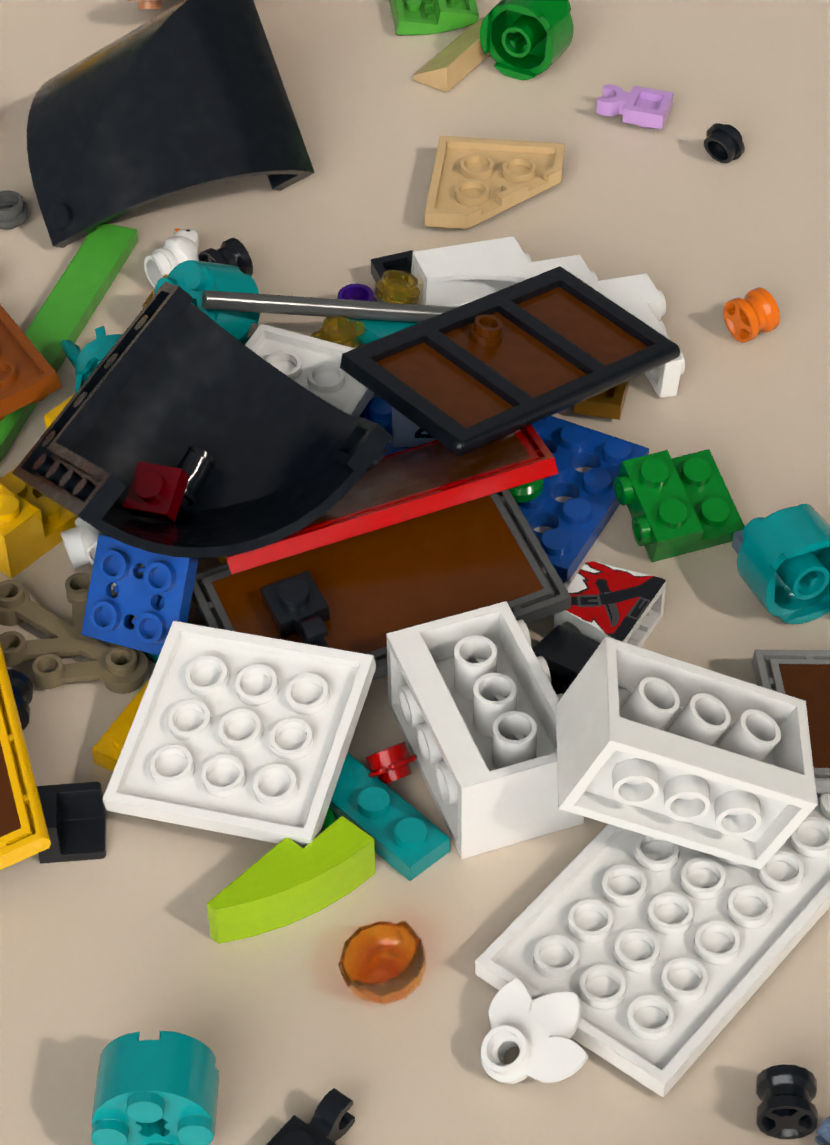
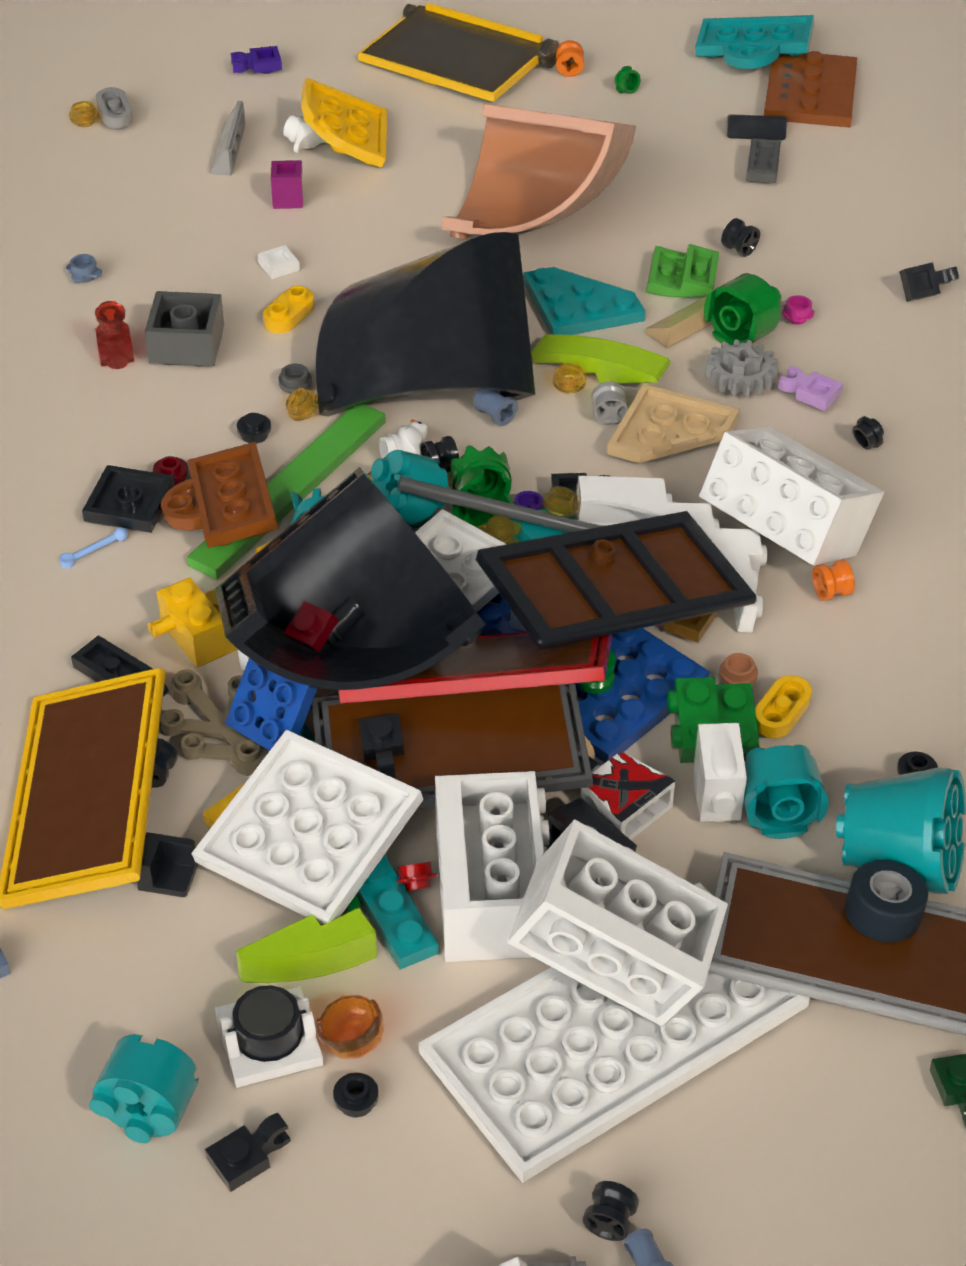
camera: 15 degrees right, 0 degrees up
(28, 238) = (301, 404): none -> clear yellow plate
(270, 194) = (497, 406): none -> sand blue bush
(274, 997) = (264, 1034): none -> piece
(293, 271) = (483, 475): none -> green hat
(330, 62) = (578, 303): none -> teal plate
(346, 147) = (569, 378): none -> clear yellow plate
(388, 116) = (604, 357): none -> lime slope
(410, 176) = (609, 403): none -> light grey wheel
(417, 1056) = (359, 1104): none -> black plate
(540, 1031) = (444, 1108): white plate -> none
(548, 97) = (741, 368): none -> light grey gear
(587, 21) = (798, 309): none -> dark pink plate
(672, 224) = (791, 494): none -> white brick
(681, 438) = (738, 669): none -> nougat plate
(715, 559) = (719, 772): none -> white torso
(751, 469) = (783, 706): none -> yellow plate

